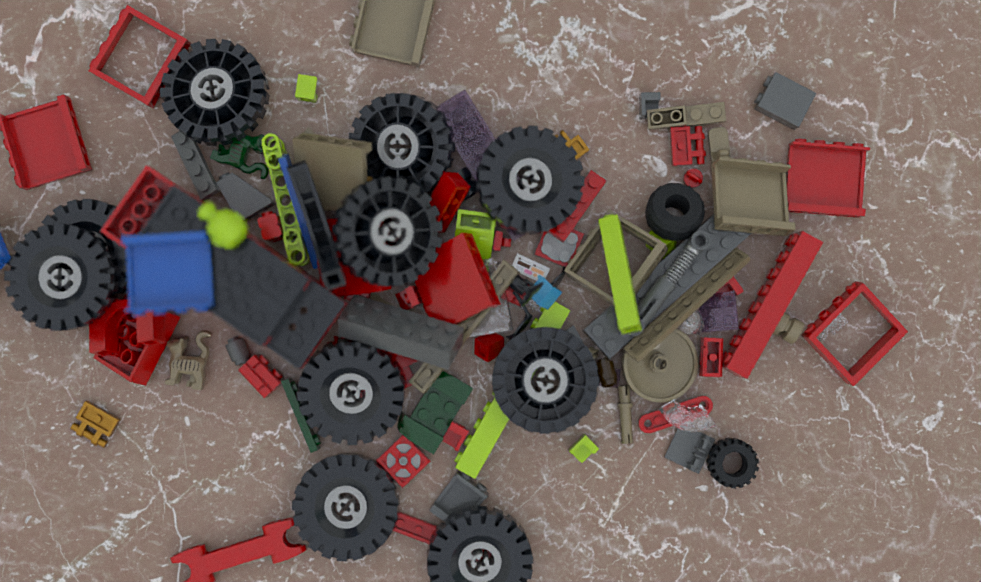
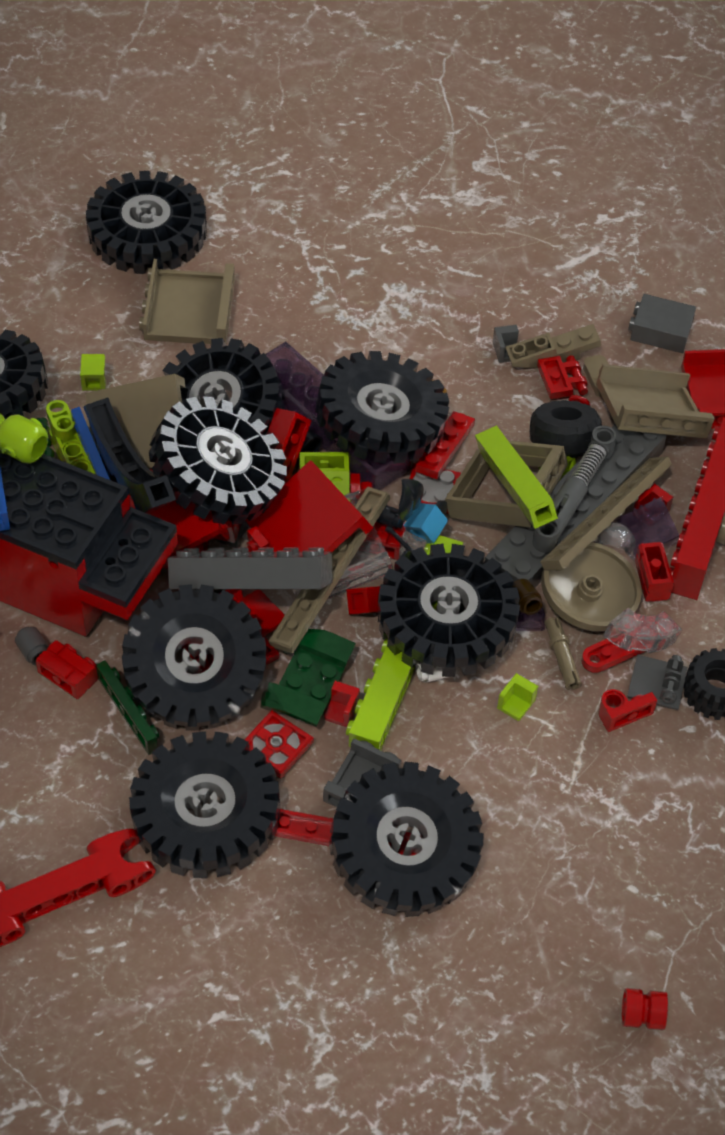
camera: 10 degrees left, 35 degrees down
(669, 470) = (625, 711): none -> red plate

